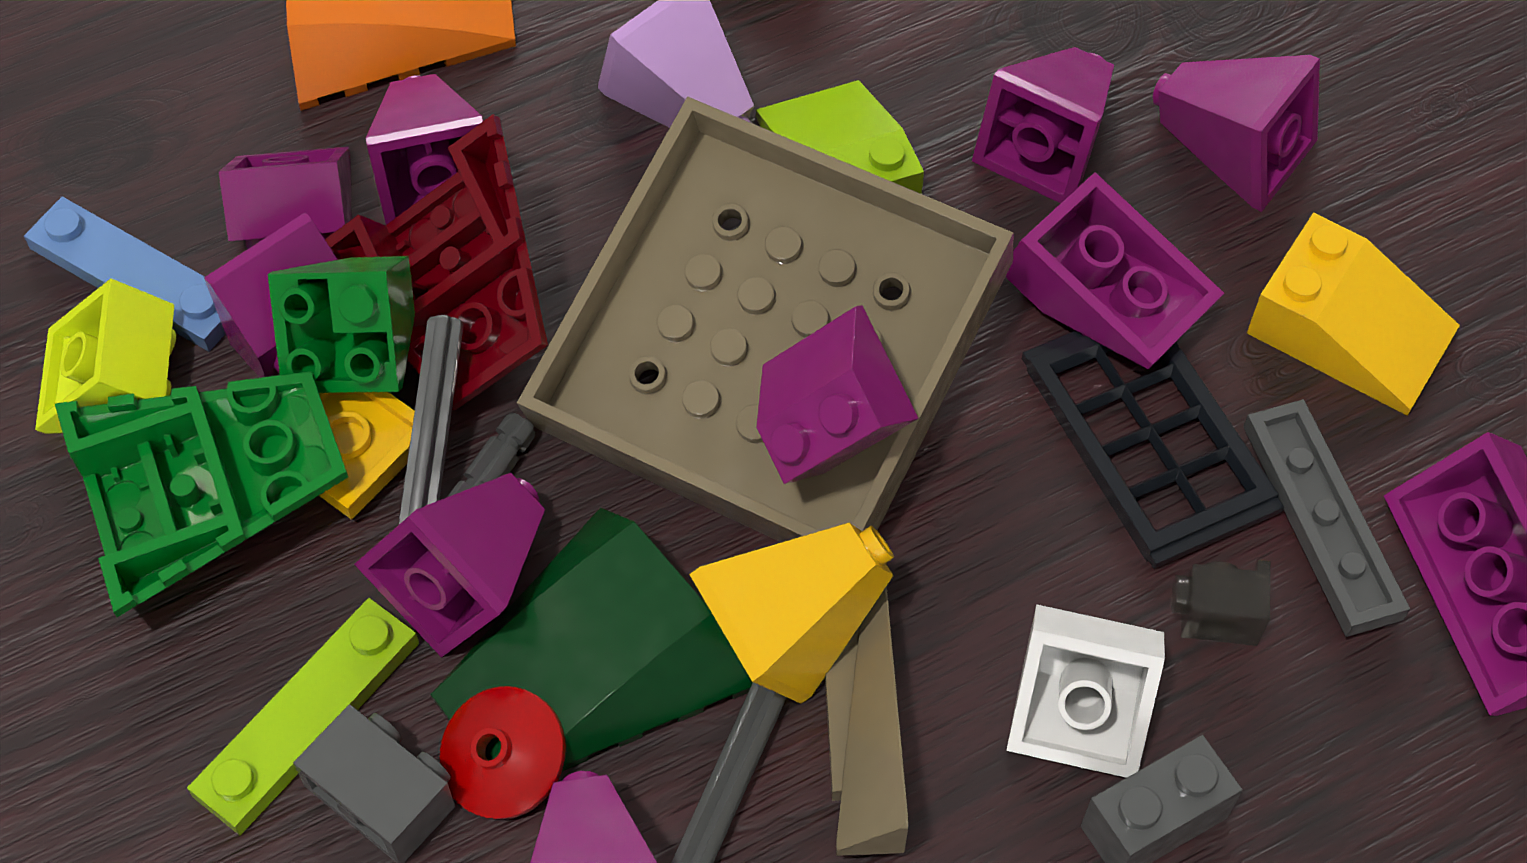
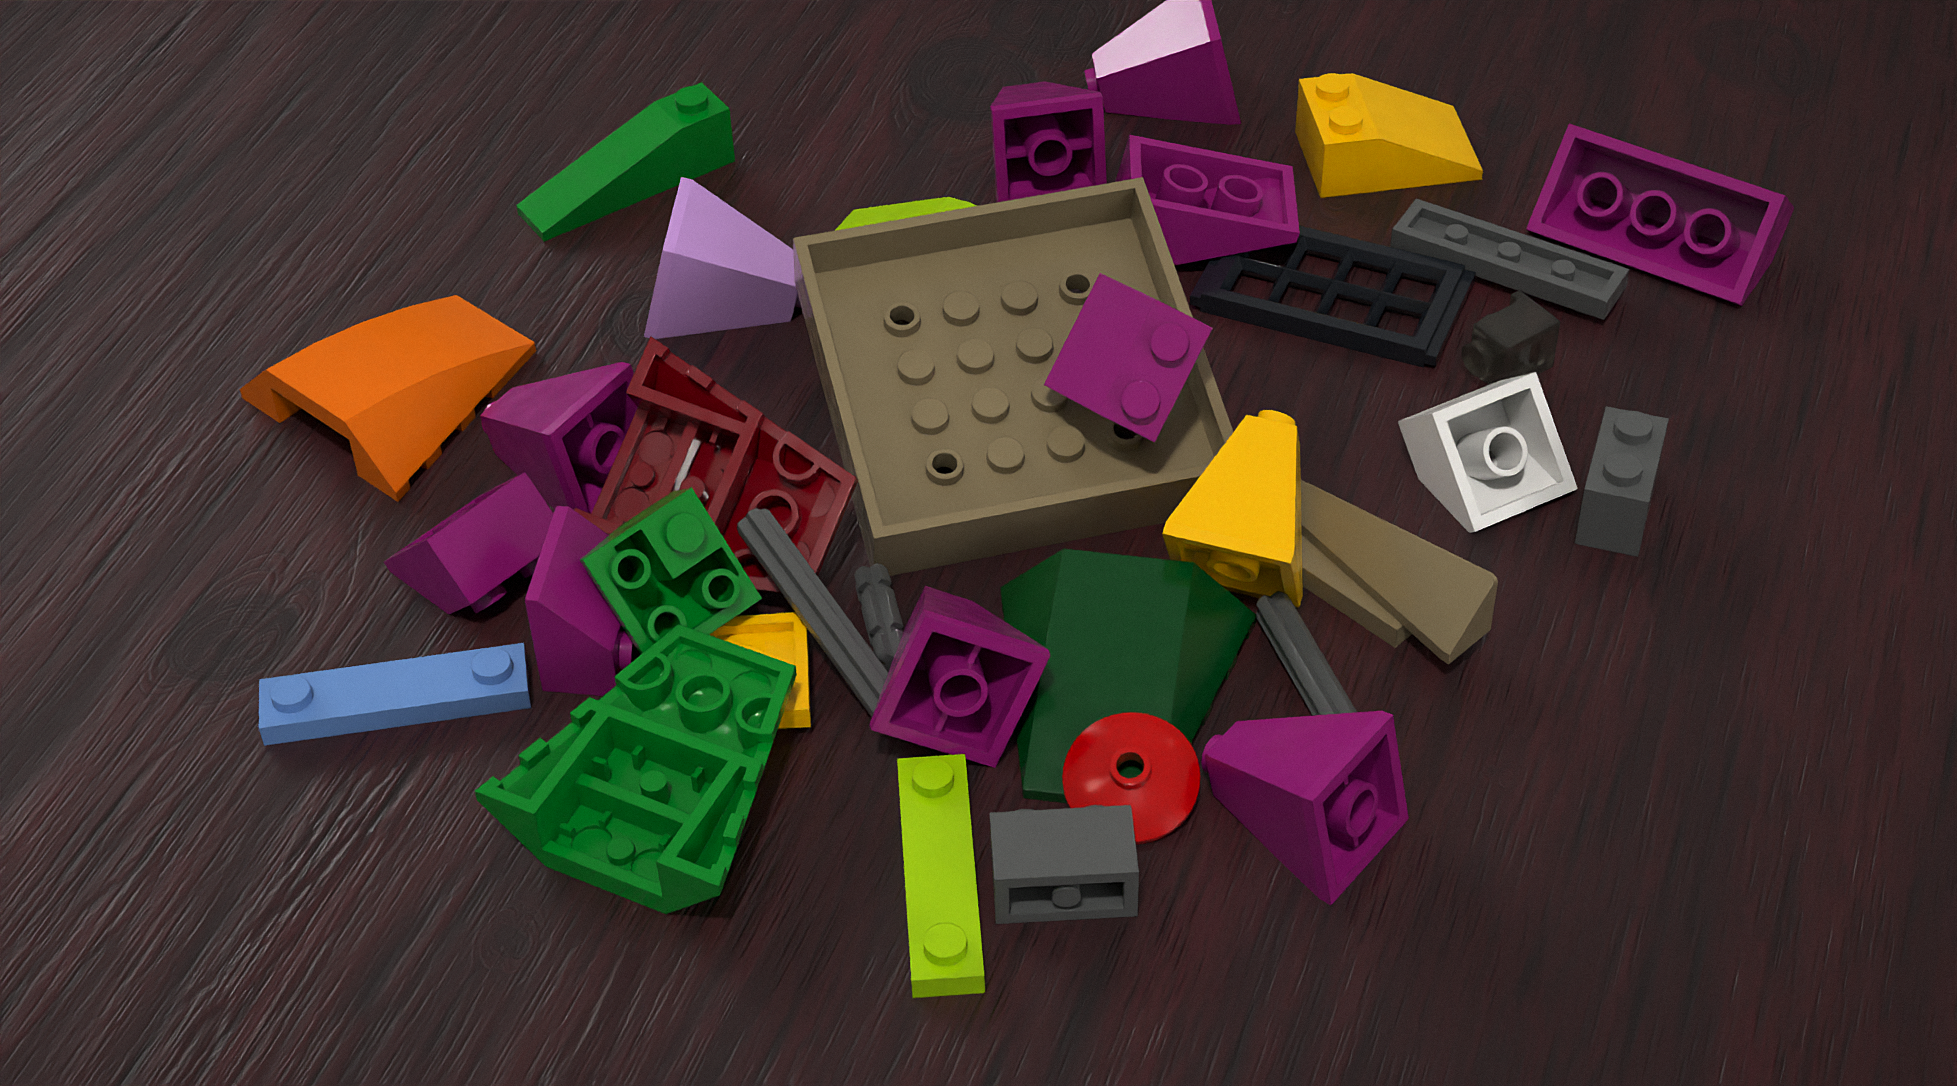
camera: 40 degrees left, 15 degrees down
(106, 348) = (442, 749): neon yellow slope -> none

